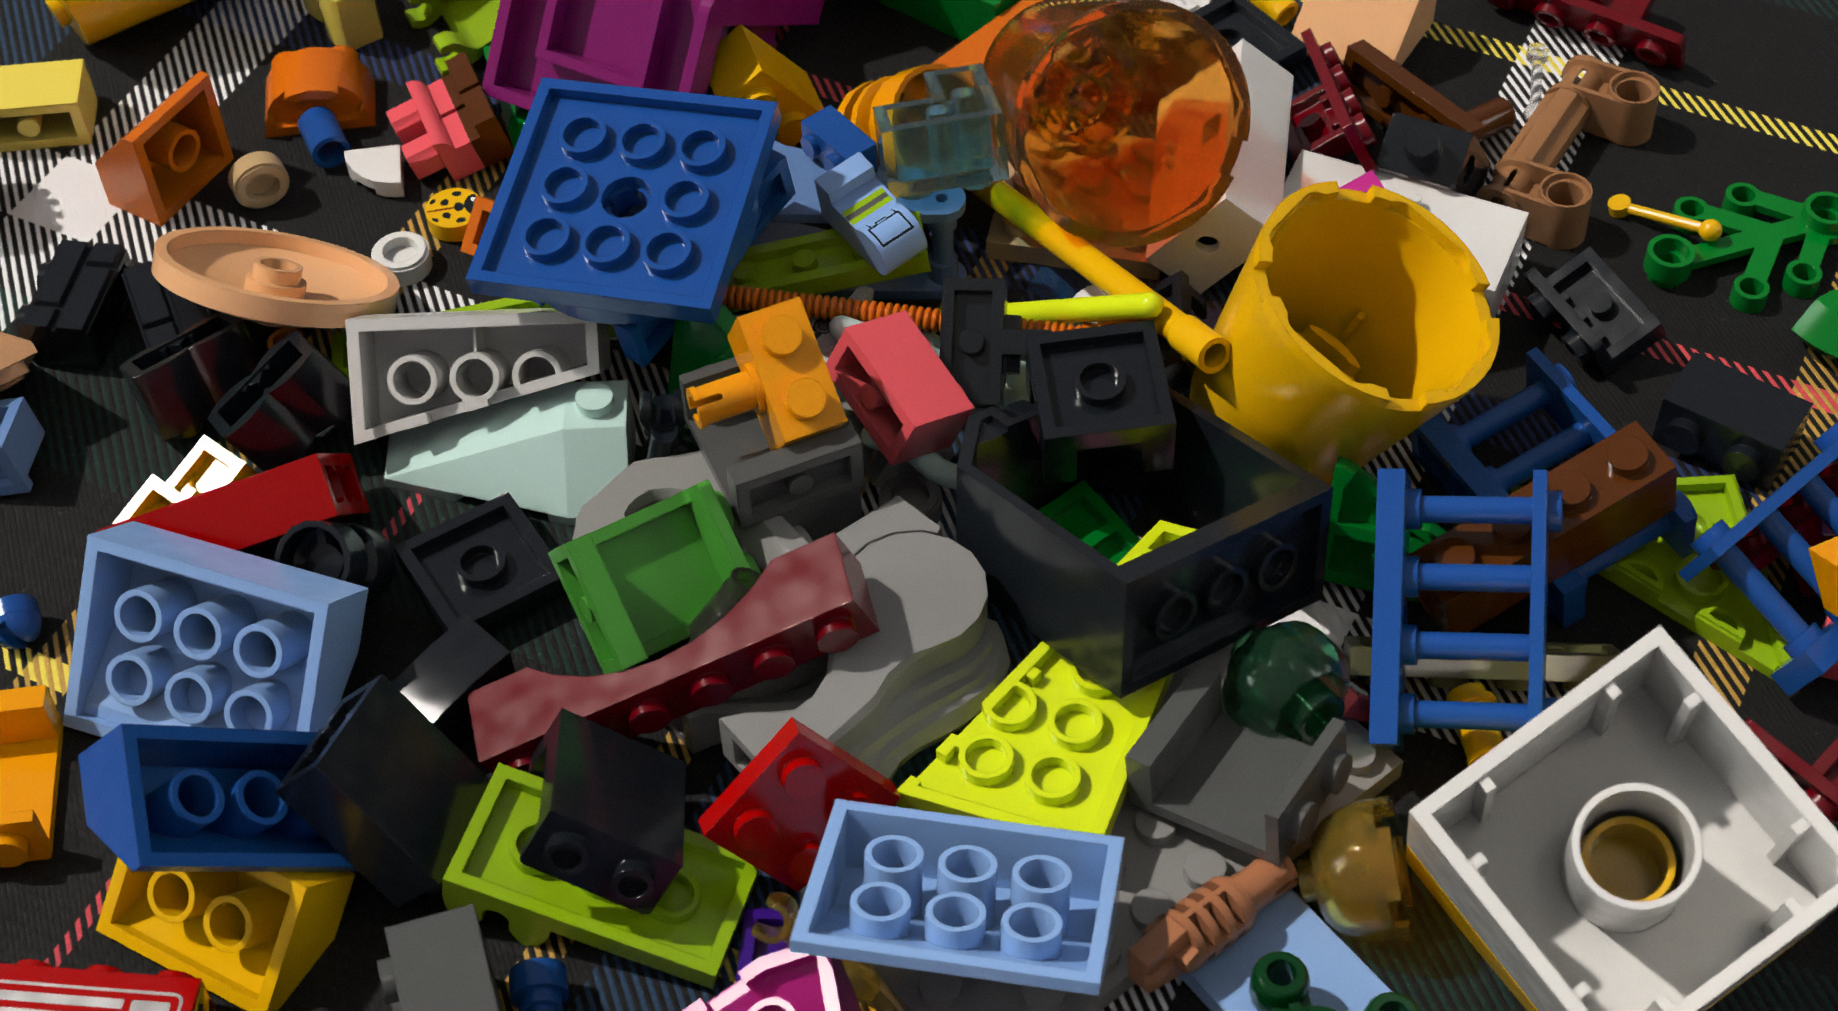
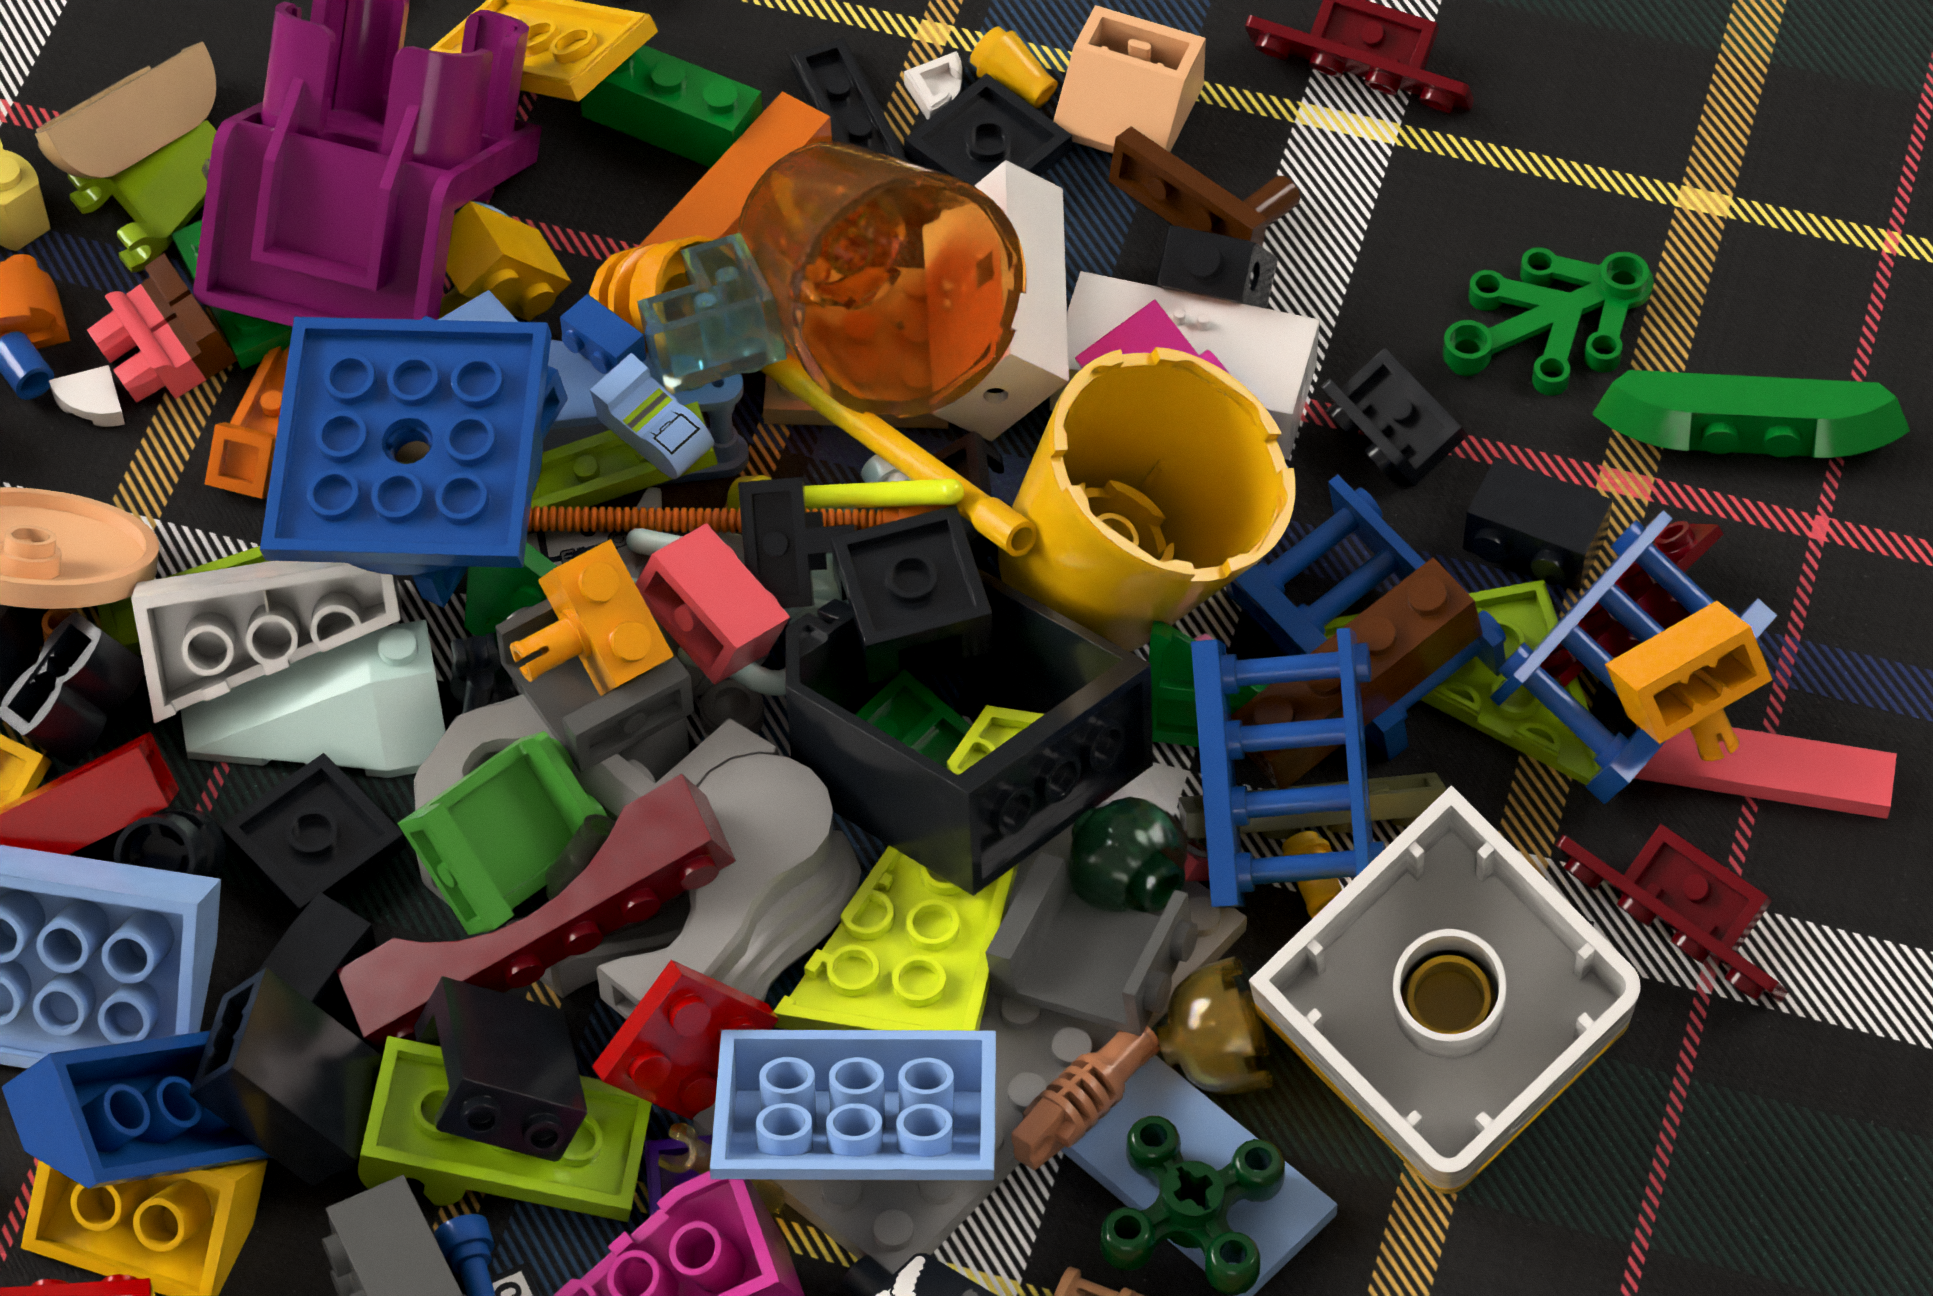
camera: 10 degrees left, 5 degrees up
(405, 255) = (144, 495): white tile -> none
(450, 213) = (185, 441): yellow tile -> none
(1330, 116) = (1100, 222): dark red bracket -> none
(1536, 54) = (1317, 112): clear hinge -> none
(1604, 103) = (1388, 169): medium nougat piece -> none
(1621, 206) = (1416, 288): yellow hinge -> none

